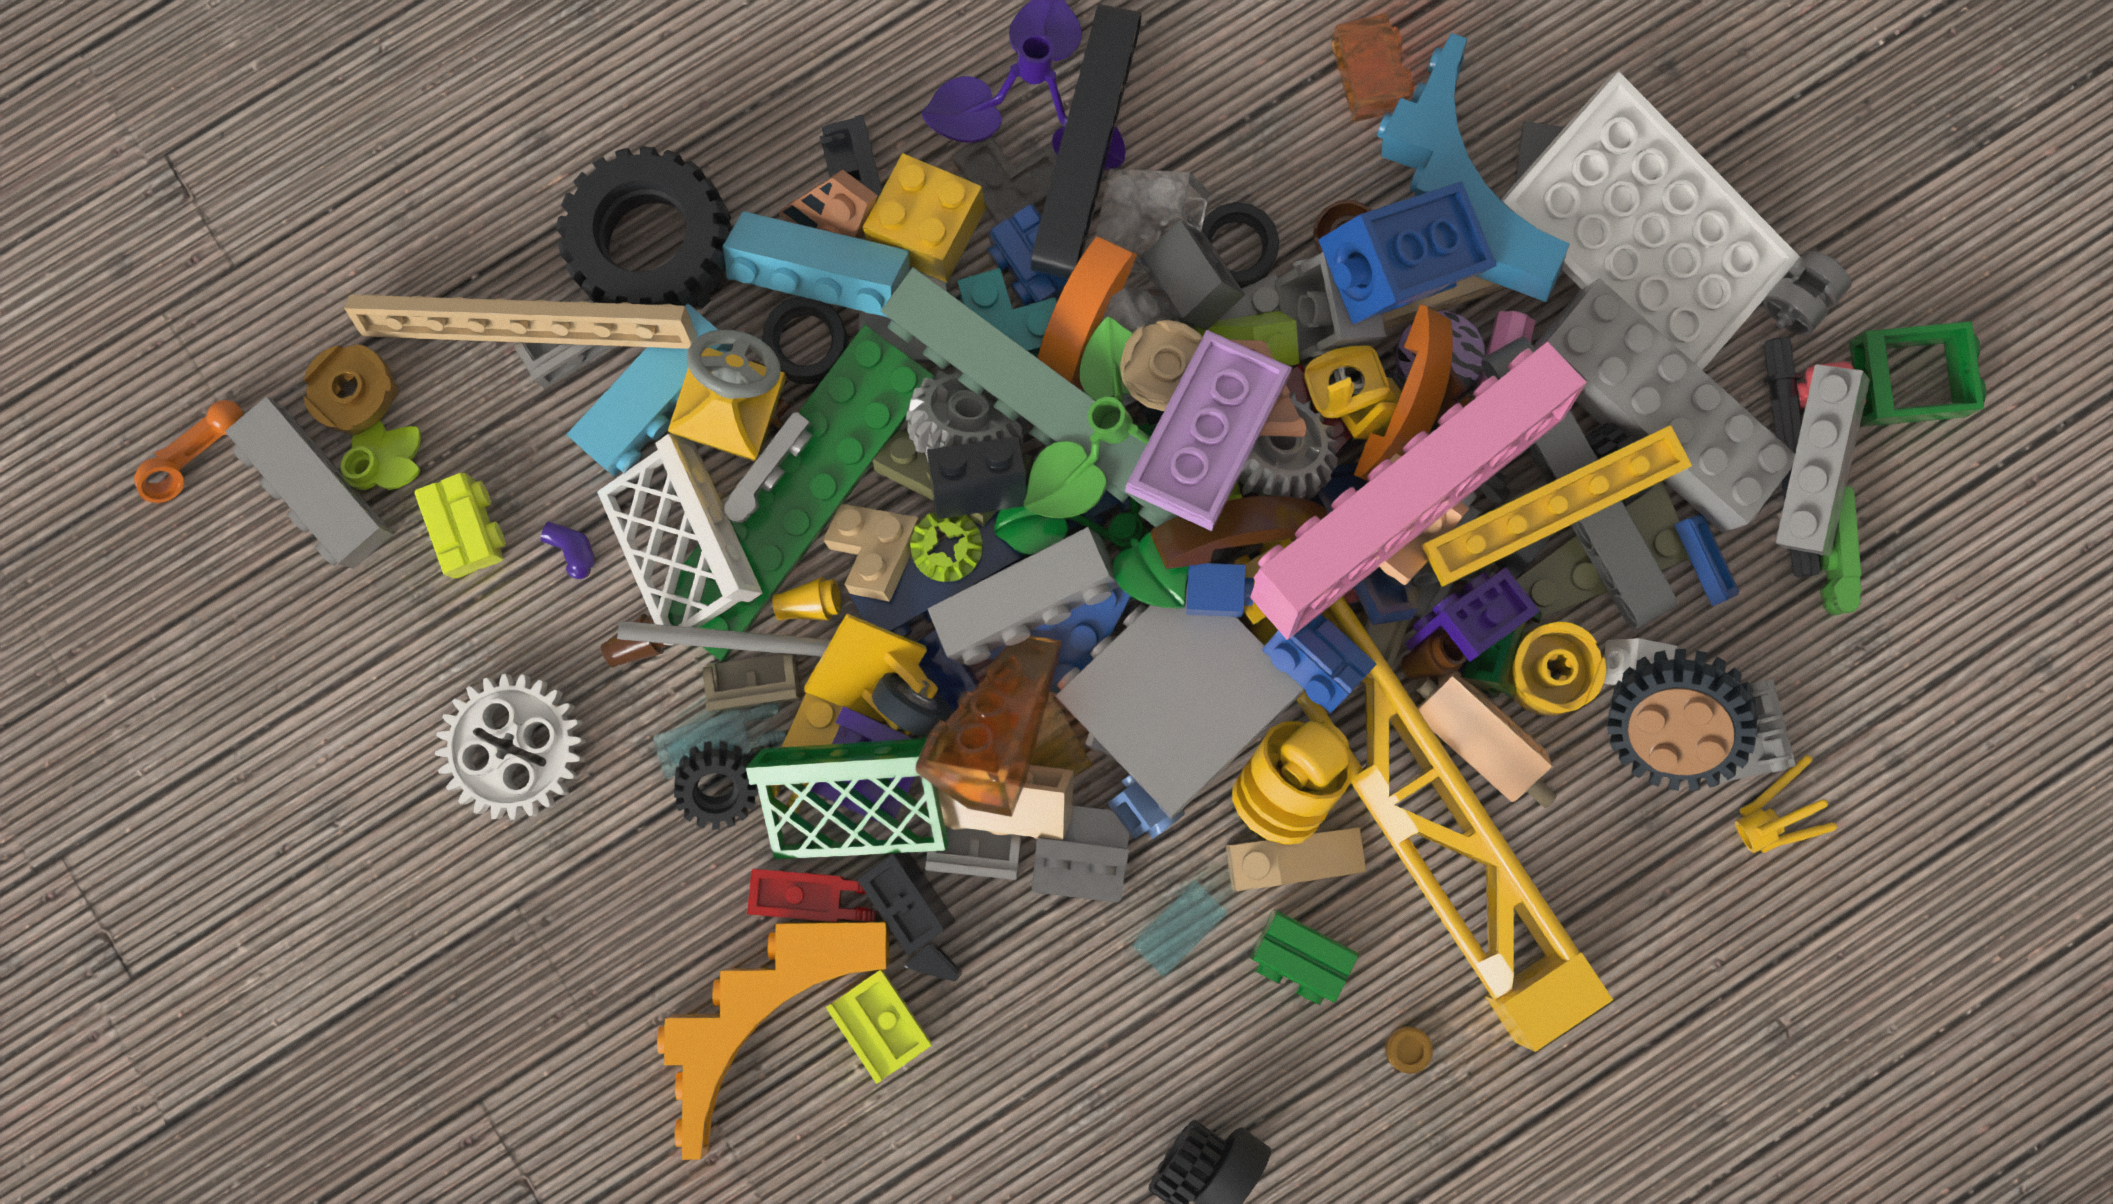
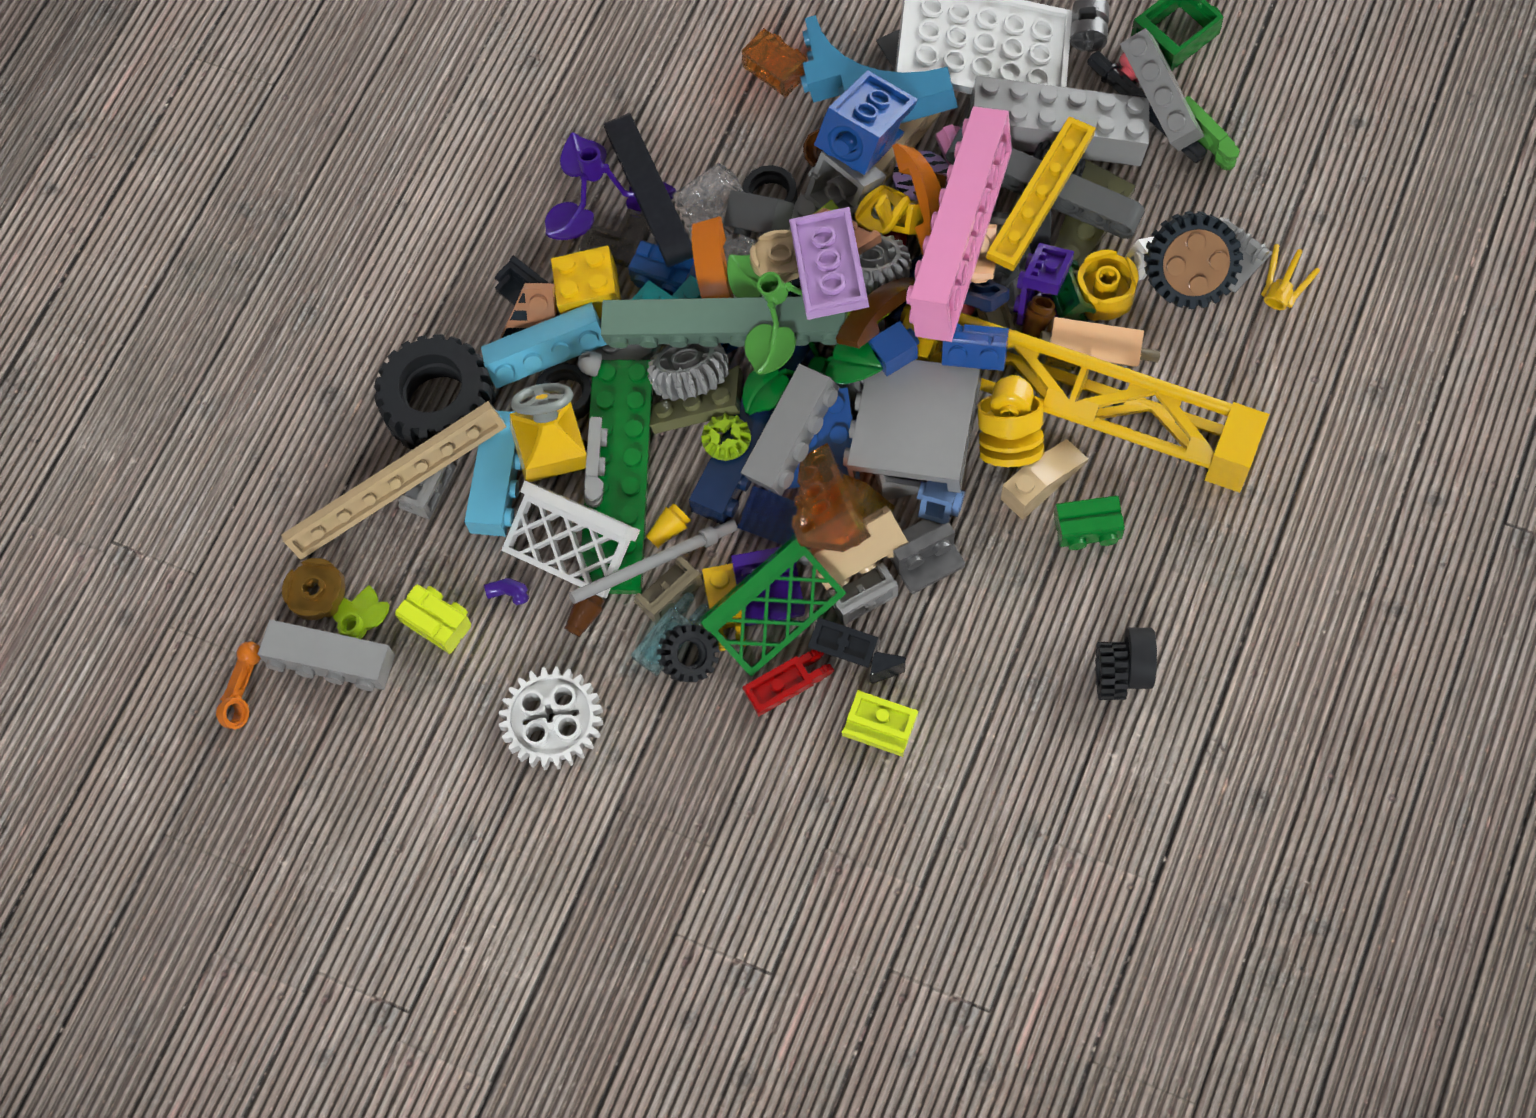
camera: 30 degrees left, 15 degrees down
(746, 996) = (786, 801): light orange arch -> none
(854, 329) = (590, 362): none -> light grey hinge
(878, 677) = (731, 529): yellow plate -> none
(881, 545) = (684, 463): tan plate -> none
(977, 477) = (718, 382): black brick -> none
(1179, 928) = (1009, 558): clear light blue tile -> none
(1408, 1049) = (1185, 534): pearl gold tile -> none
(1707, 559) = (1142, 181): blue tile -> none

